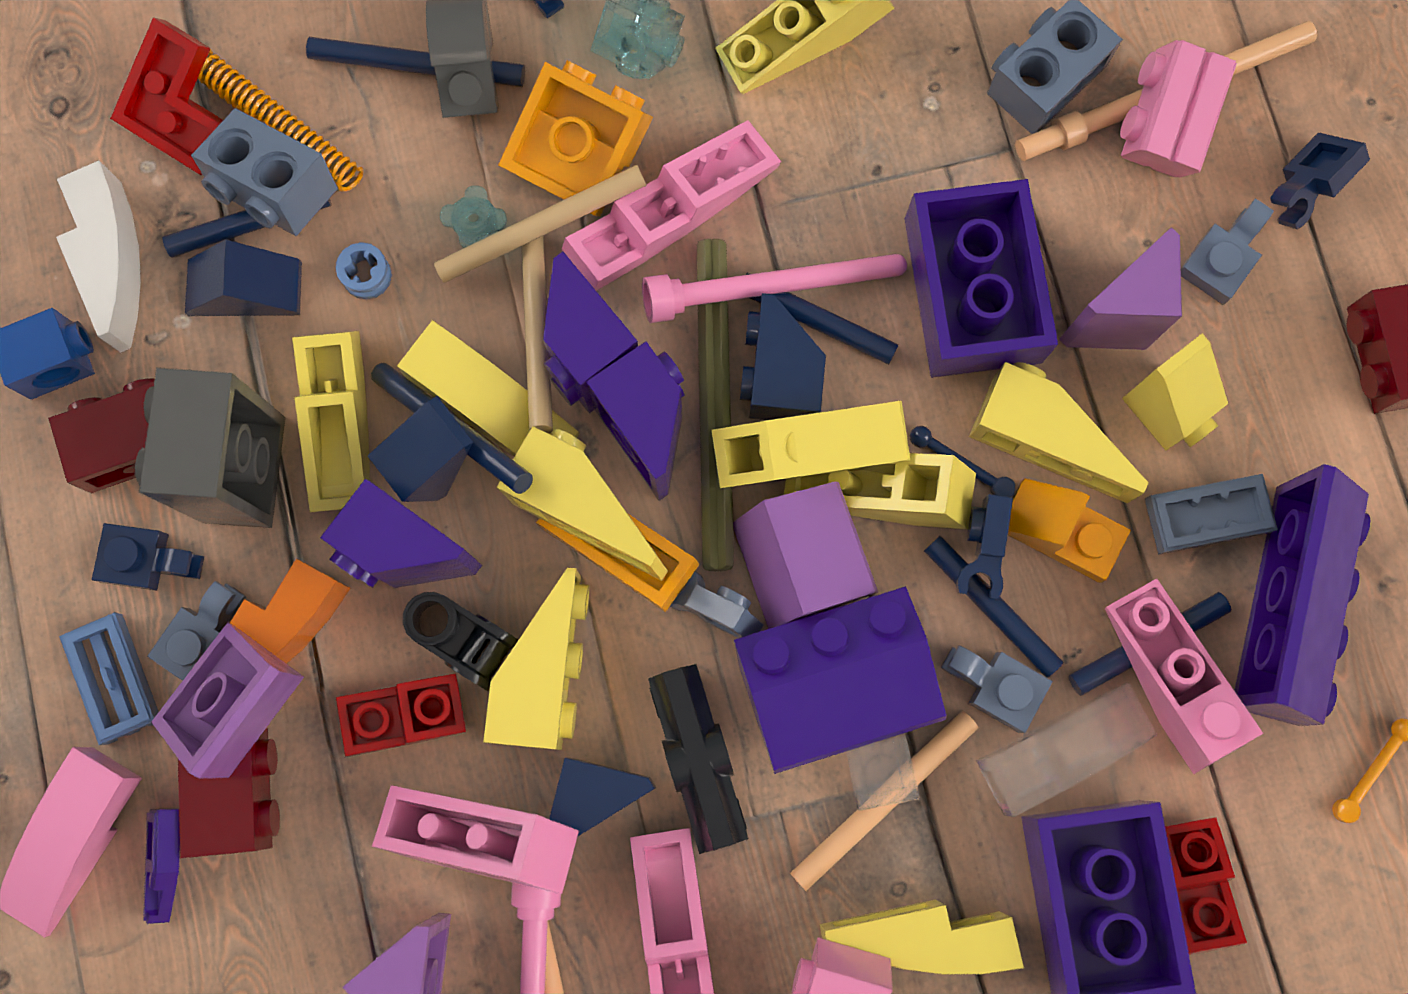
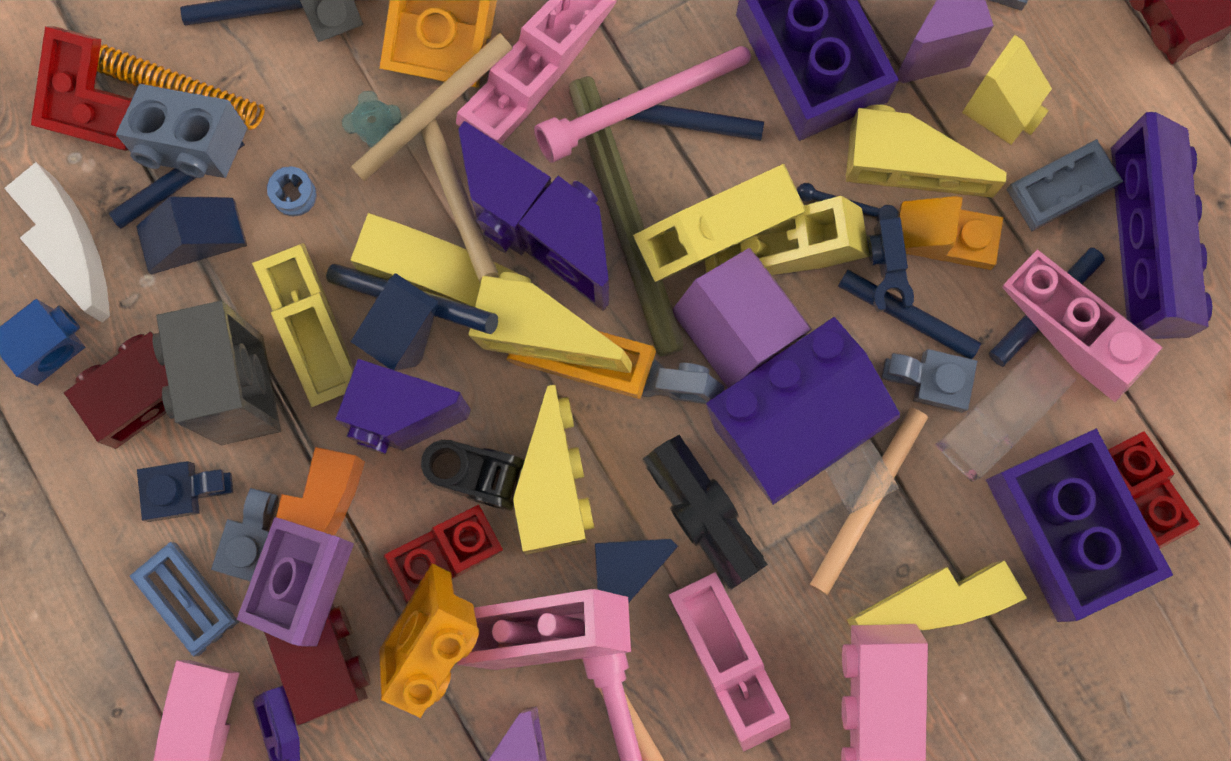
camera: 15 degrees left, 0 degrees up
(344, 814) = (426, 644): none -> light orange plate
(786, 367) = (676, 165): dark blue slope -> none

